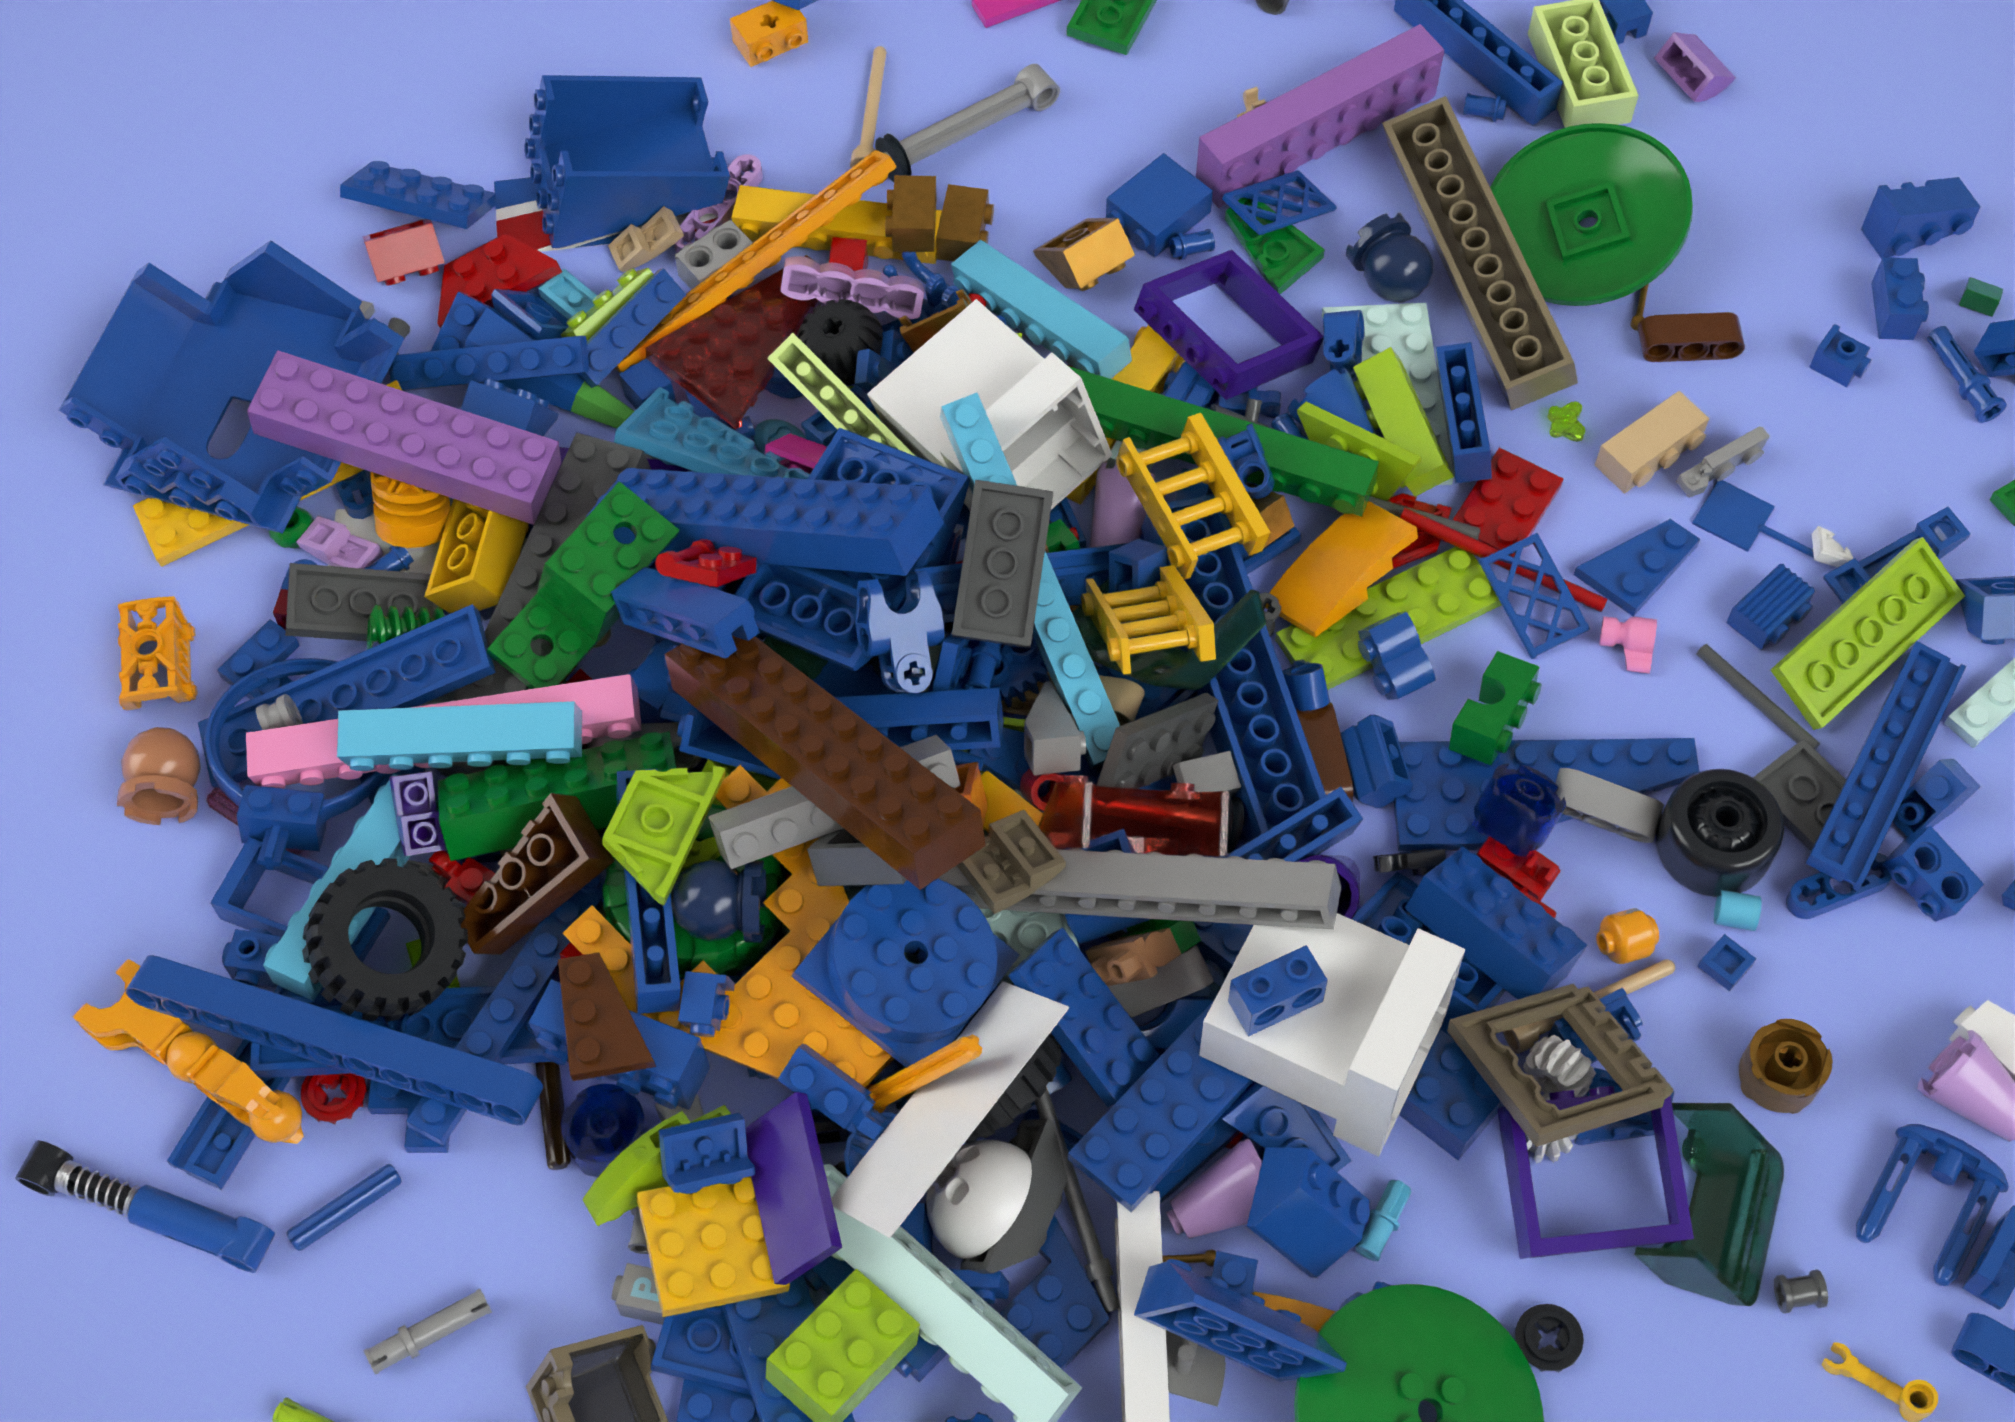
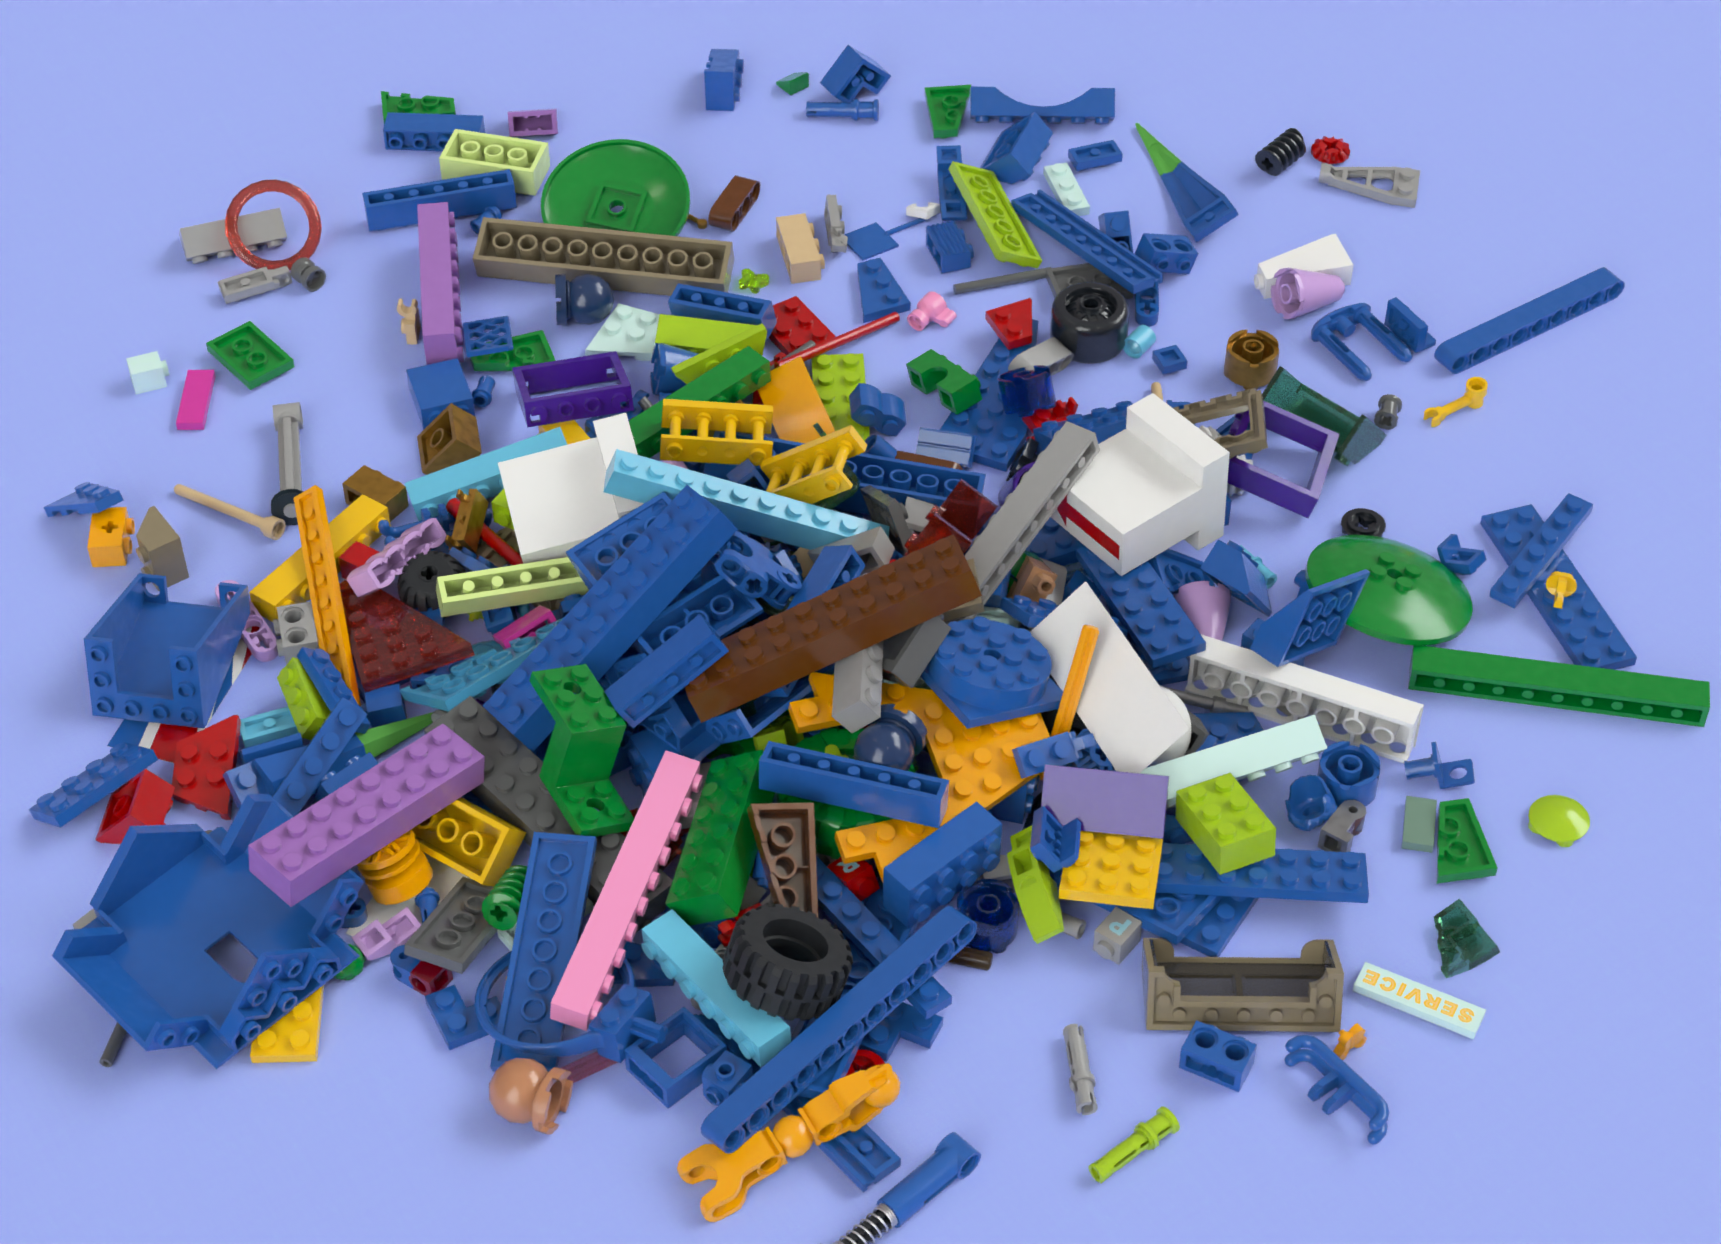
camera: 65 degrees left, 15 degrees down
(172, 652) = (408, 1088): light orange piece -> none
(279, 714) = (539, 990): light grey wheel -> none
(343, 1207) = (956, 1093): blue axle -> none
(416, 813) = (697, 922): dark purple slope -> none
(460, 735) = (651, 860): medium azure brick -> none
(597, 1021) = (933, 848): reddish brown wing -> none
(643, 244) = (247, 668): tan slope -> none
(660, 823) = (822, 745): lime wing -> none
(704, 1002) = (961, 786): blue brick -> none
(706, 564) = (636, 648): red plate -> none
(759, 78) = (160, 549): none -> dark tan slope
(912, 213) = (362, 501): pearl gold brick -> none
(1002, 564) = (743, 499): dark grey plate -> none
(1247, 456) = (709, 391): blue piece -> none
(1277, 990) = (1129, 486): blue brick -> none
(1307, 831) = (994, 472): blue brick -> none
(1343, 339) = (628, 345): blue piece -> none
(1548, 569) = (859, 348): blue window -> none
(1627, 936) = (1129, 387): light orange head -> none
(1662, 742) = (1012, 323): none -> red wing
(1840, 357) = (795, 151): blue brick -> none
(1899, 298) = (773, 110): blue brick -> none

